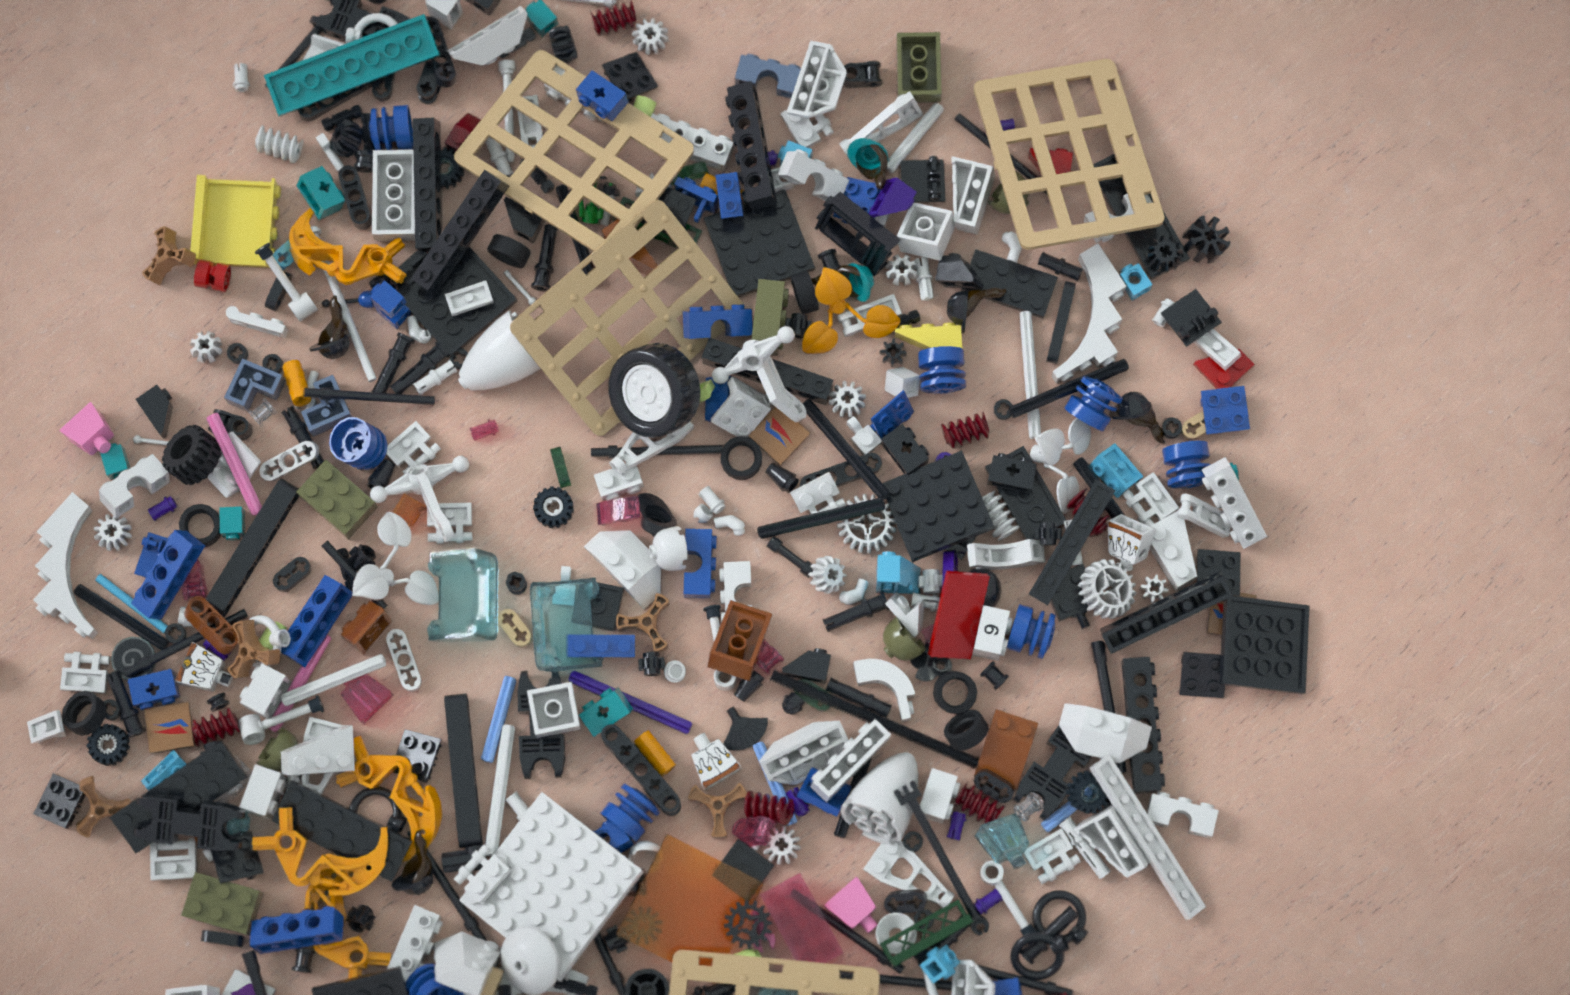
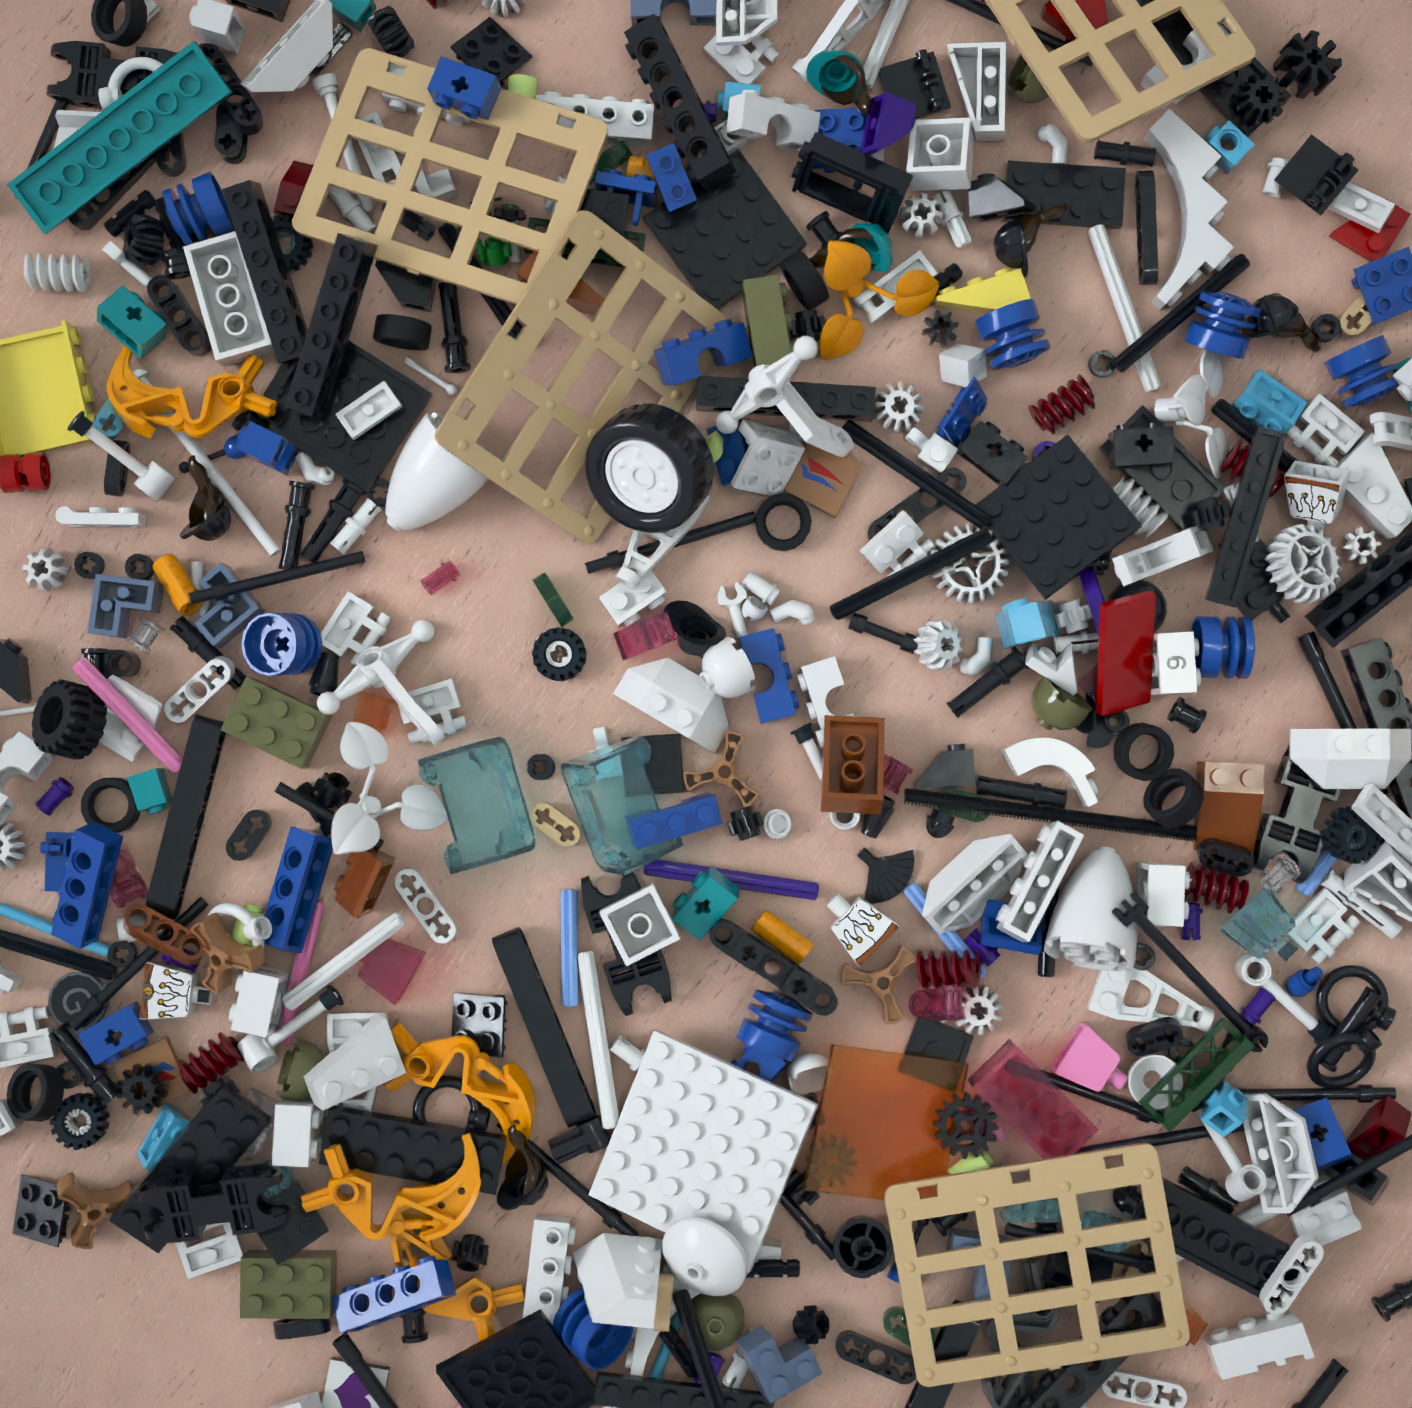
camera: 15 degrees left, 10 degrees up
(169, 727) = (134, 1094): none -> black gear
(218, 702) = (203, 1027): black bush -> none
(487, 879) = (617, 1163): white plate -> none
(564, 157) = (437, 185): none -> white panel
(689, 508) = (735, 608): none -> white bar
(782, 477) = (843, 533): black cone -> none
(1026, 892) = (1303, 981): none -> blue cylinder

